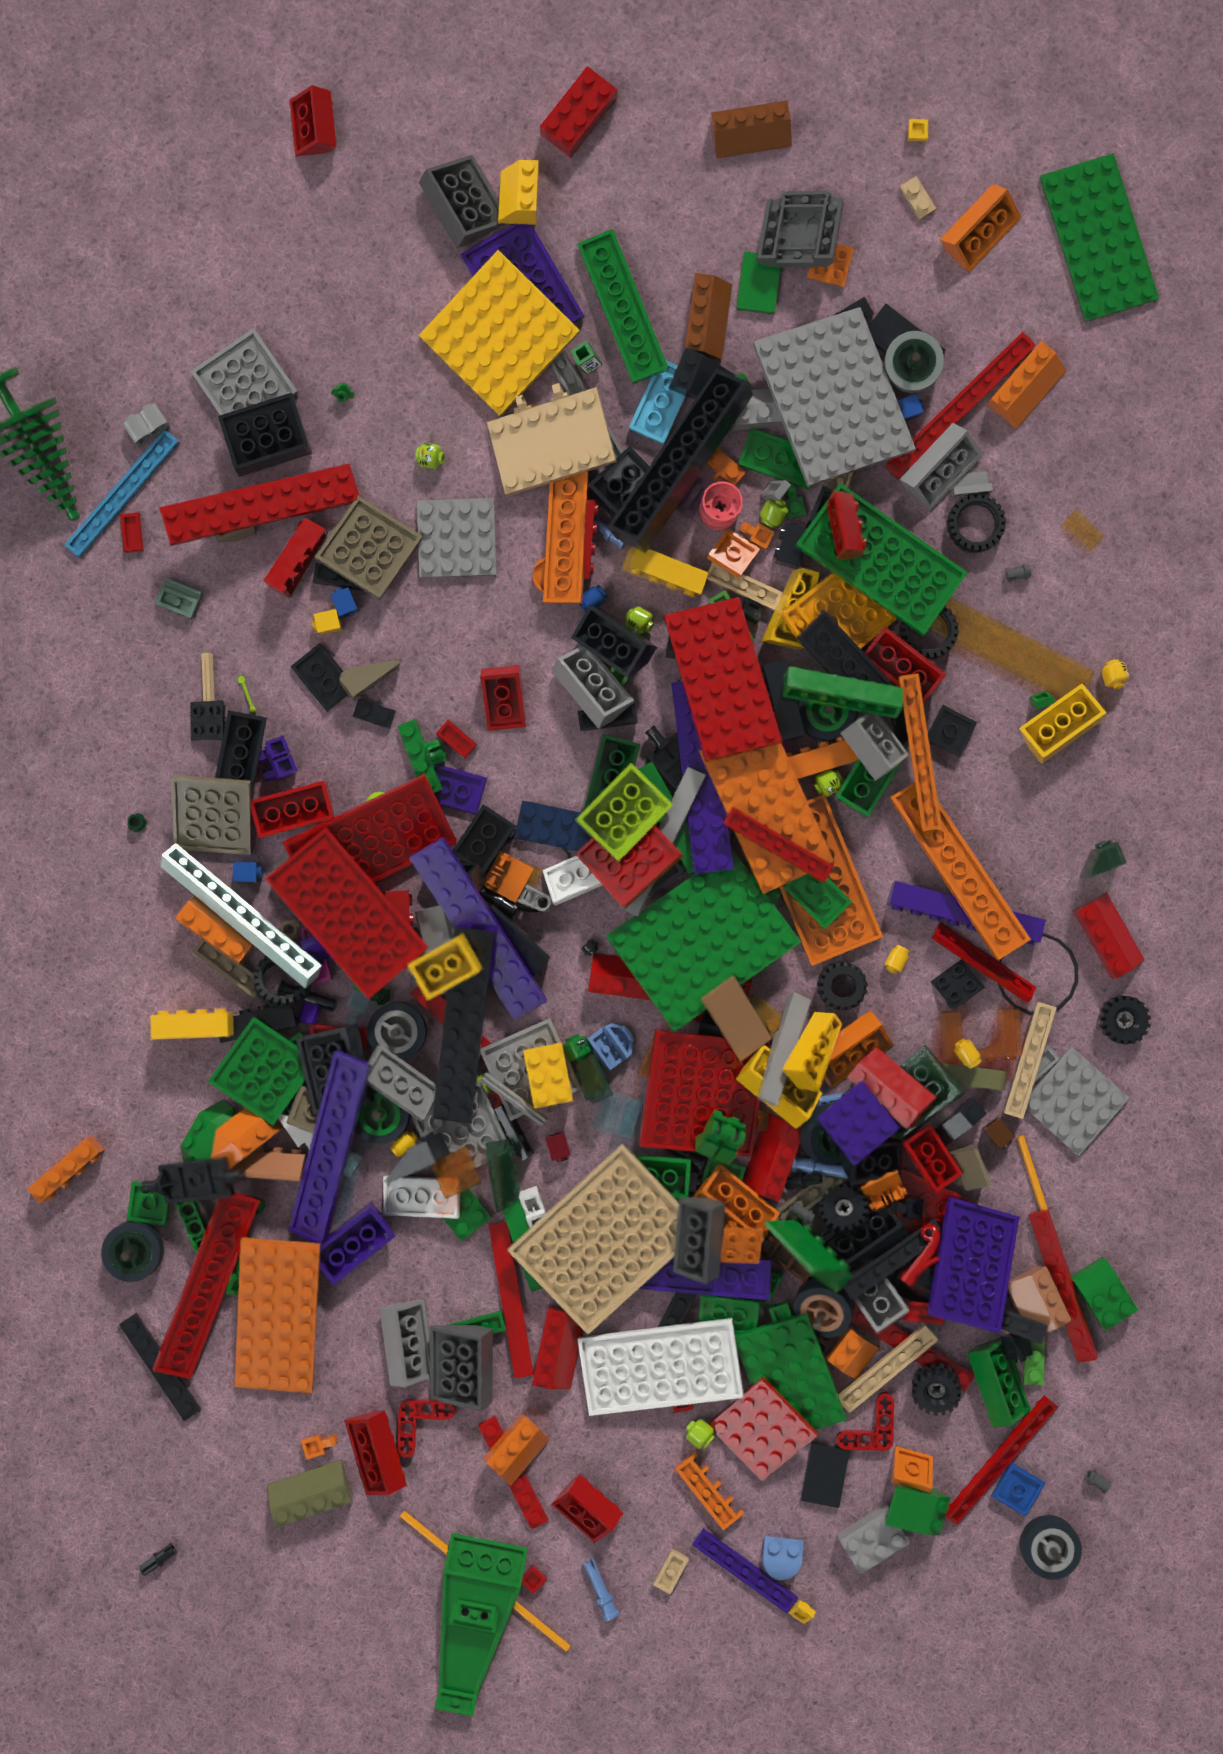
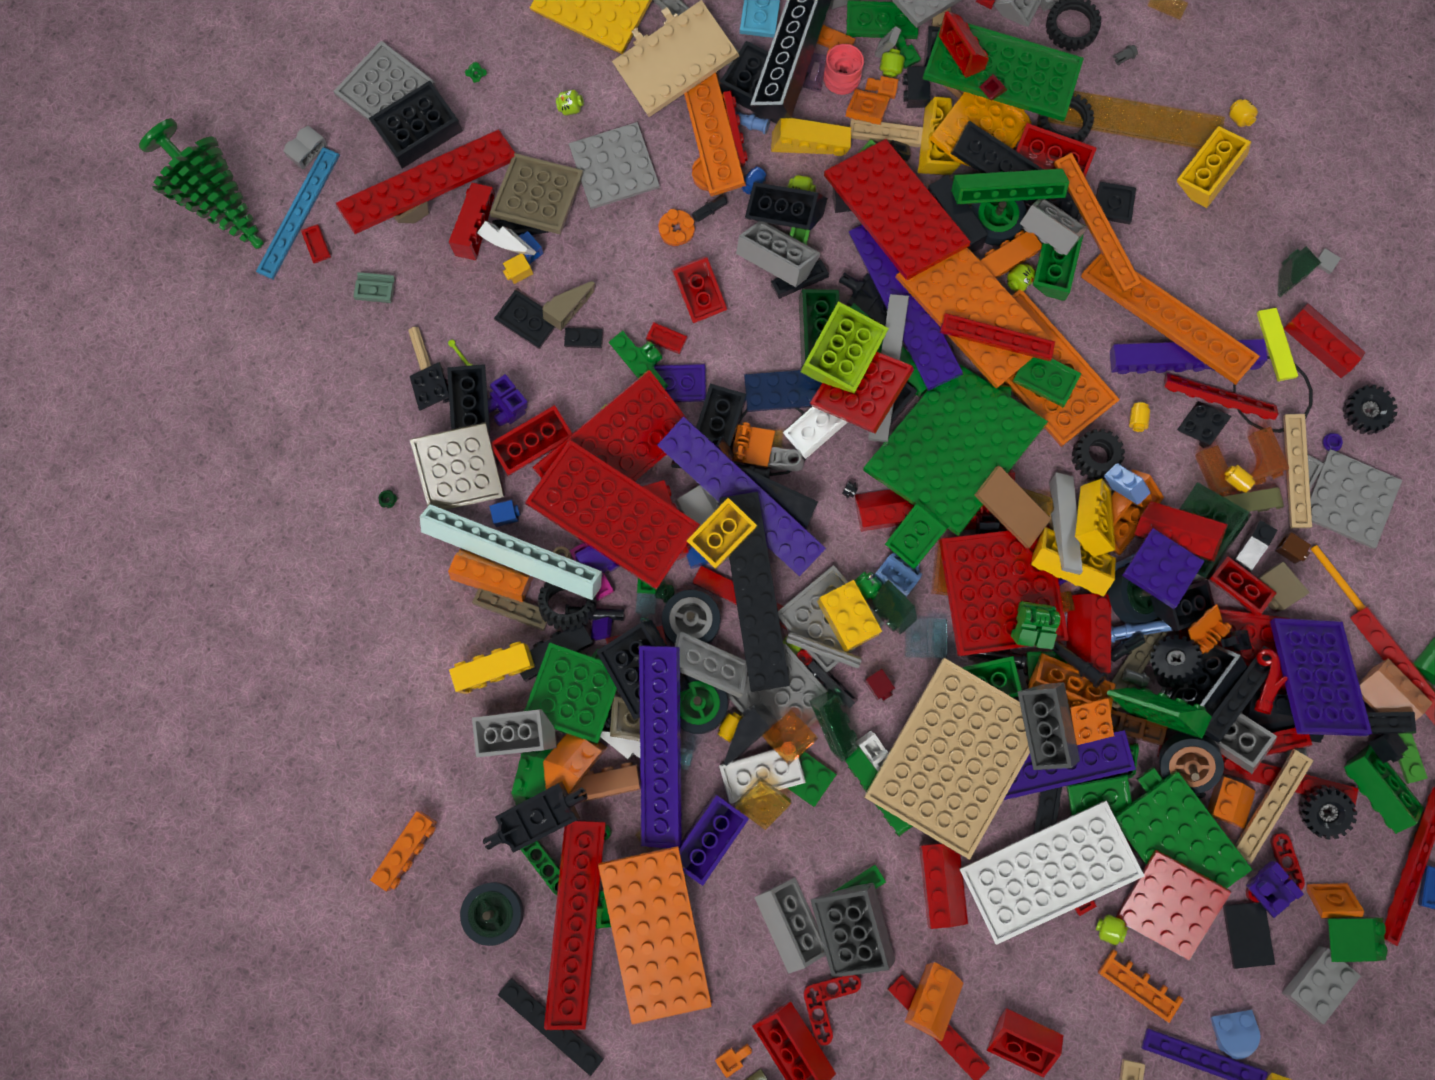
camera: 10 degrees left, 10 degrees down
(147, 1207) = (494, 864): green plate -> none
(195, 1094) = (513, 733): none -> light grey slope
(322, 592) = (505, 239): none -> white slope
(412, 1225) = (763, 803): none -> clear yellow plate
(500, 635) = (681, 236): none -> orange plate
(511, 1300) = (881, 852): red tile -> none
(539, 614) = (709, 208): none -> black axle
(636, 1017) = (916, 535): none -> green plate
(754, 1192) = (1085, 668): none -> black pin
(856, 1027) = (1127, 483): none -> medium blue brick
(859, 1443) = (1274, 888): none -> dark purple hips
(861, 580) = (993, 87): none -> dark red slope
(1042, 699) = (1187, 152): green tile -> none
(1059, 926) = (1277, 344): none -> neon yellow tile
(1077, 1040) = (1332, 441): none -> dark purple plate
(1141, 855) = (1329, 261): none -> light grey tile

